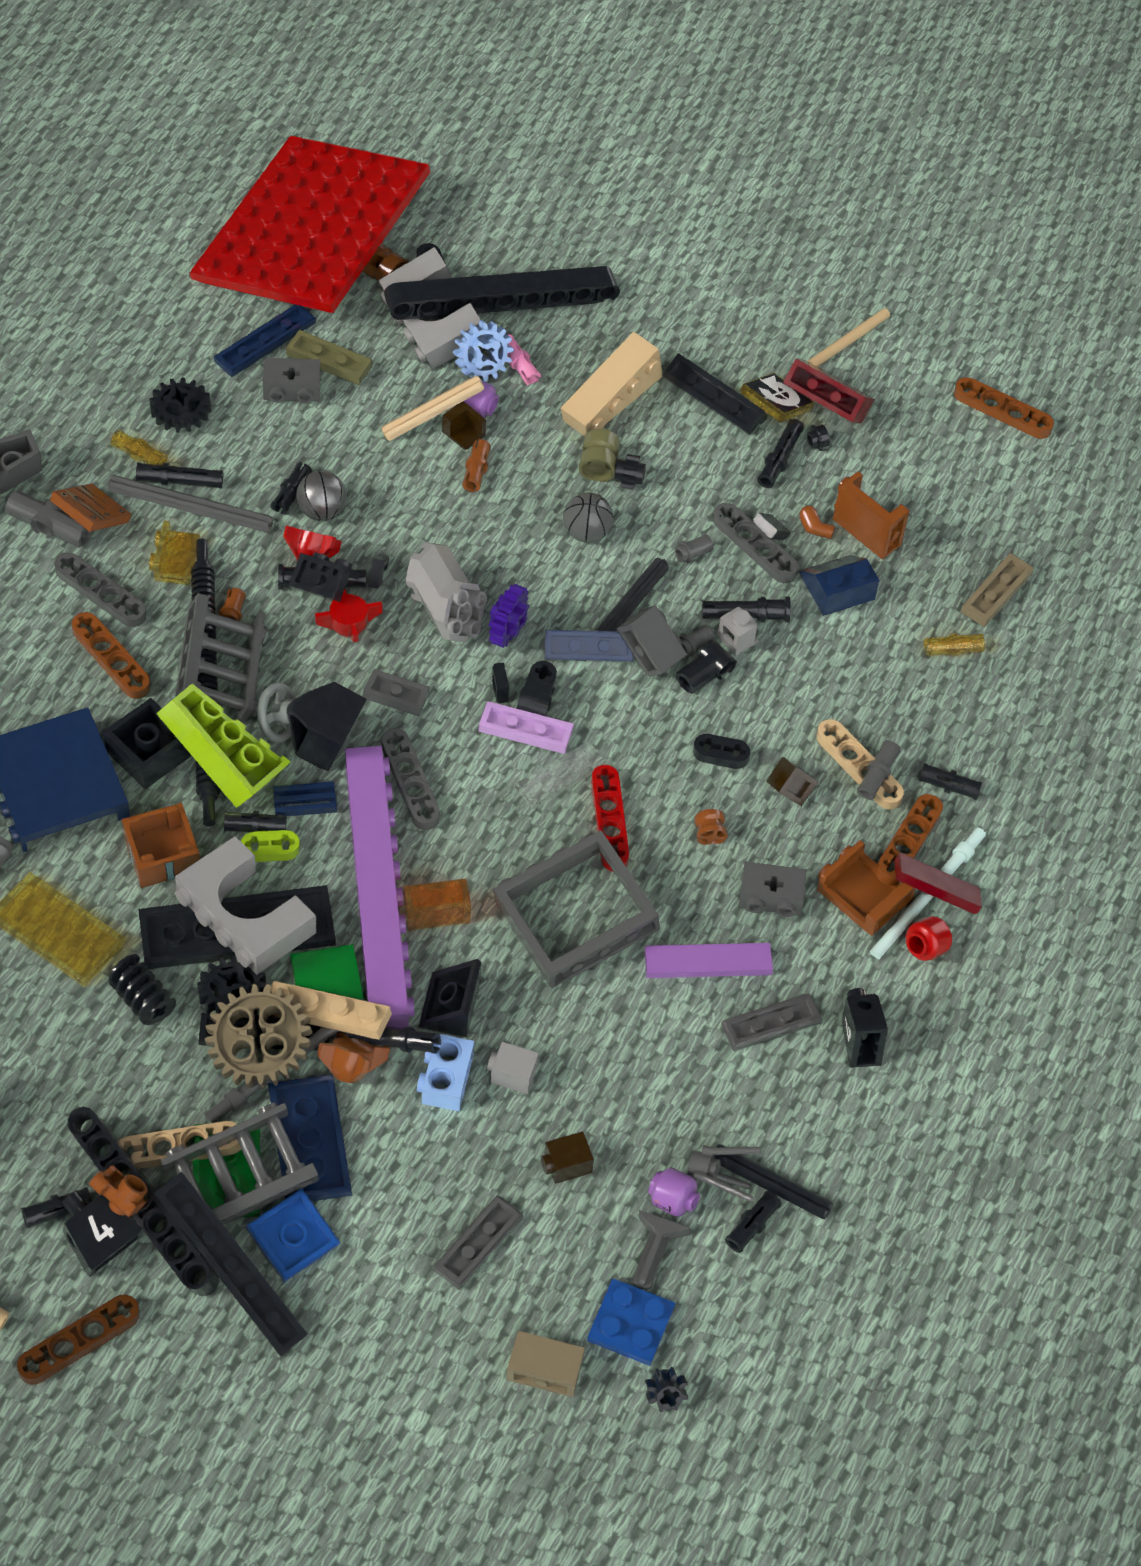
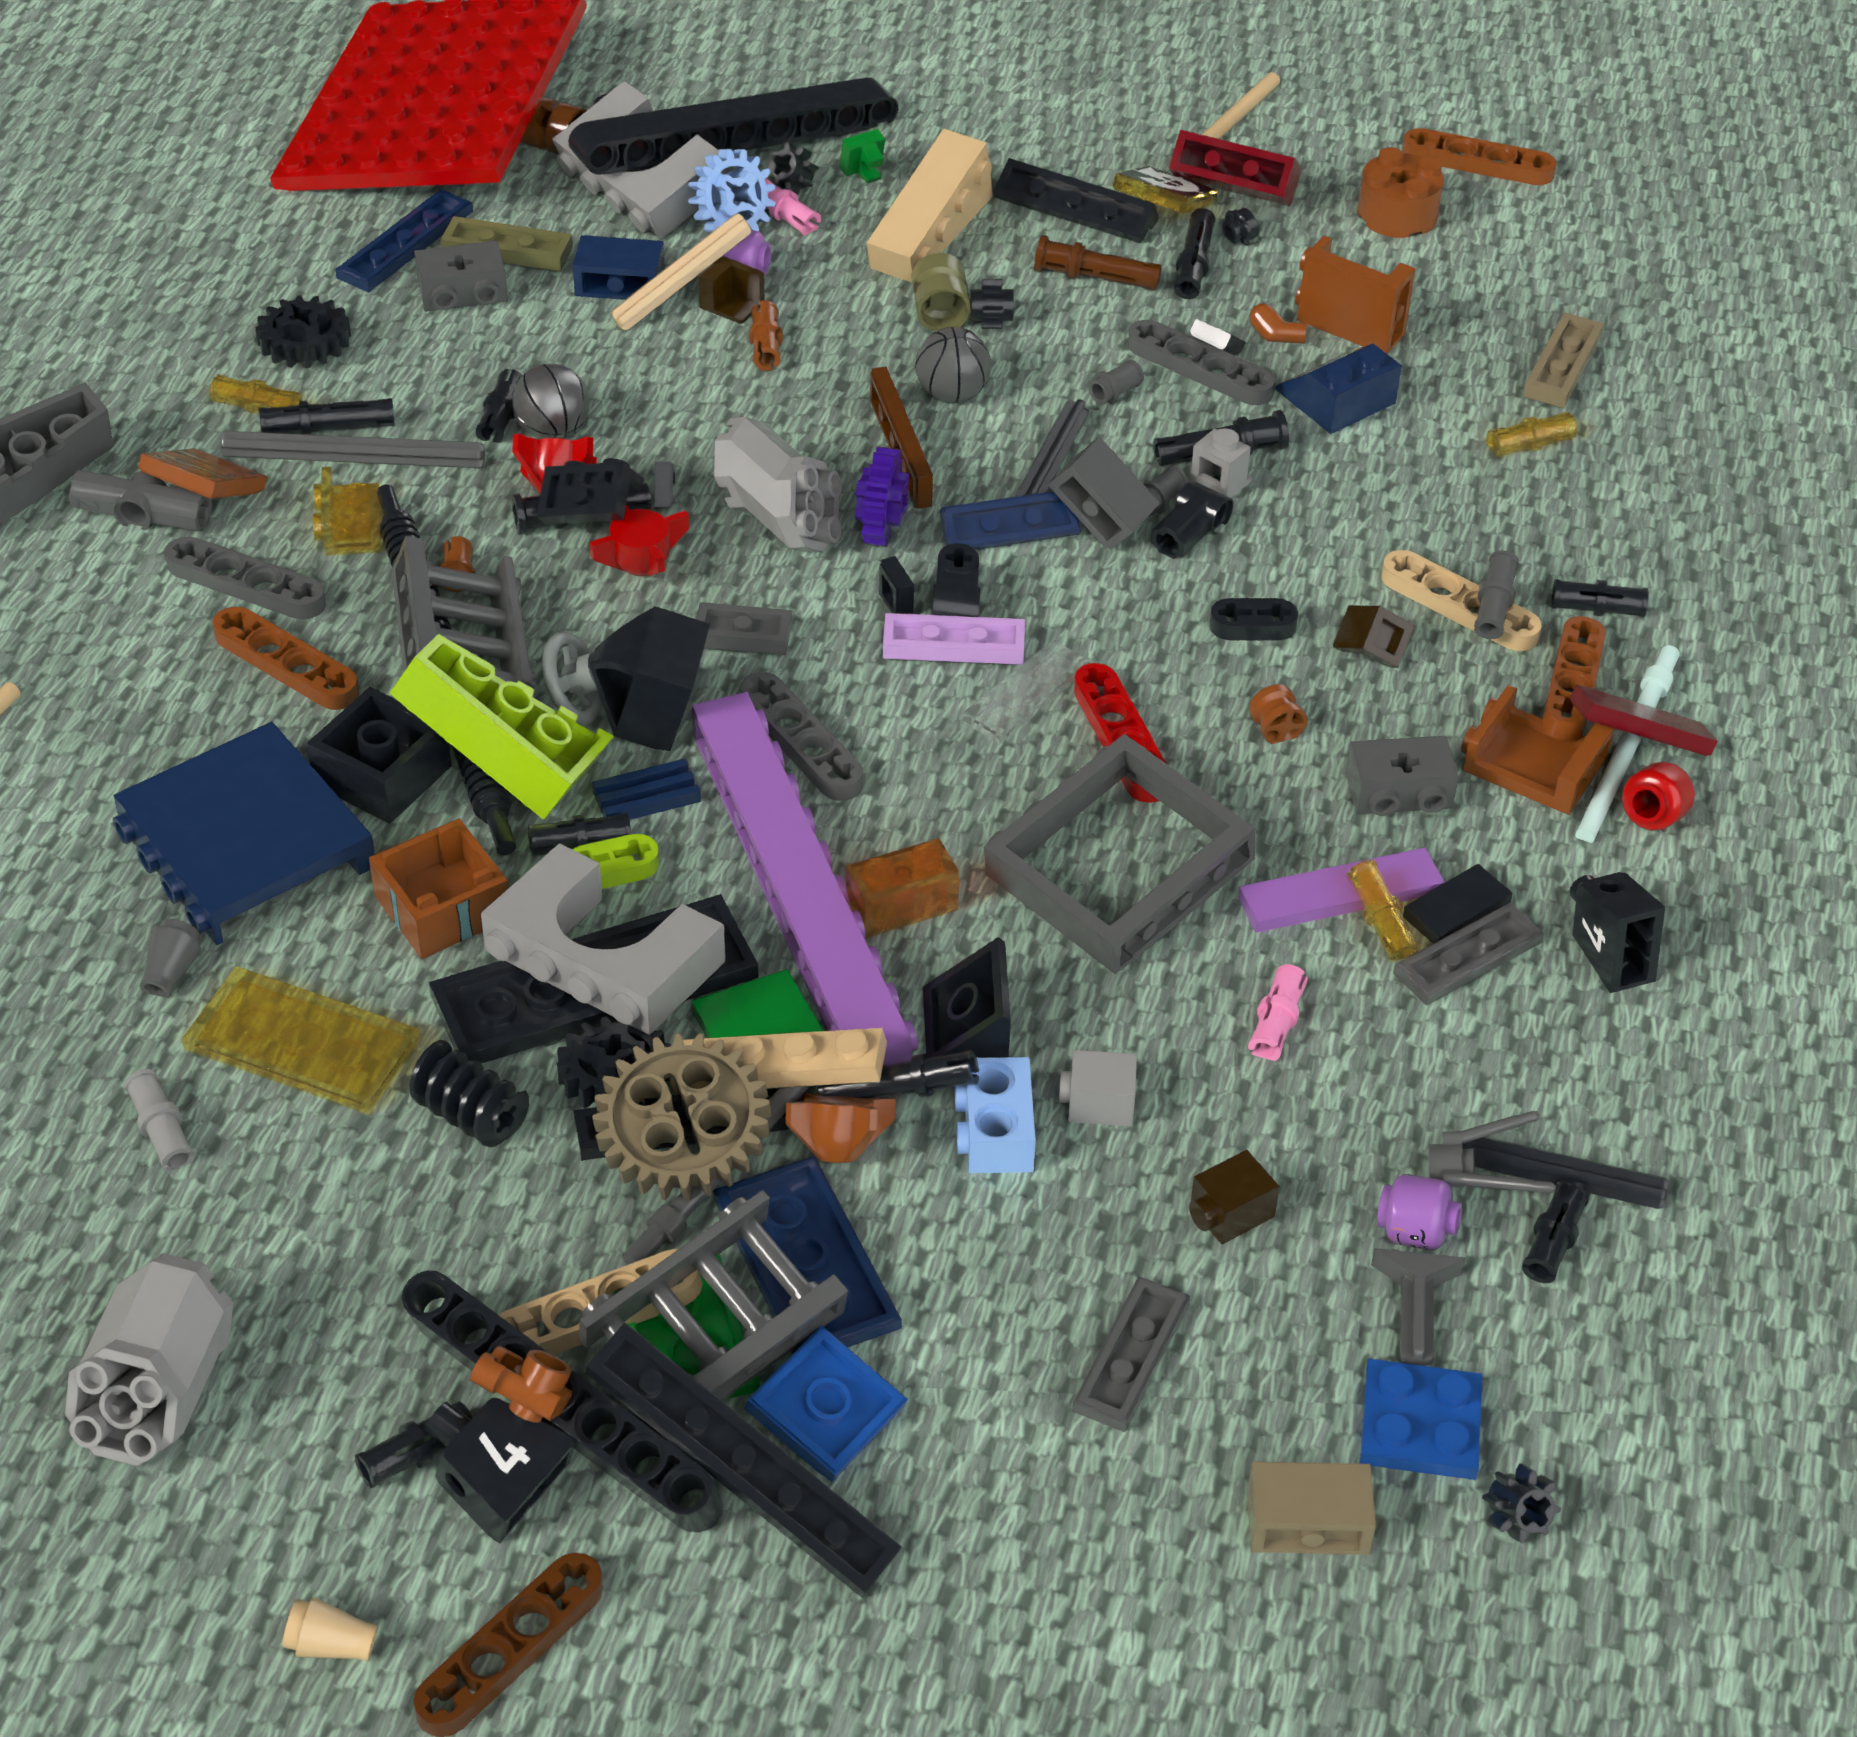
camera: 10 degrees left, 10 degrees down
(394, 391) = (615, 266): none -> dark blue brick
(531, 332) = (792, 168): none -> black gear
(538, 566) = (901, 436): none -> reddish brown tile
(583, 329) = (862, 155): none -> green tile
(639, 1038) = (1278, 1012): none -> bright pink pin
(700, 445) = (1078, 261): none -> reddish brown pin
(725, 983) = (1382, 910): none -> clear yellow pin
(776, 986) = (1457, 903): none -> black tile
(934, 433) = (1400, 193): none -> dark orange brick

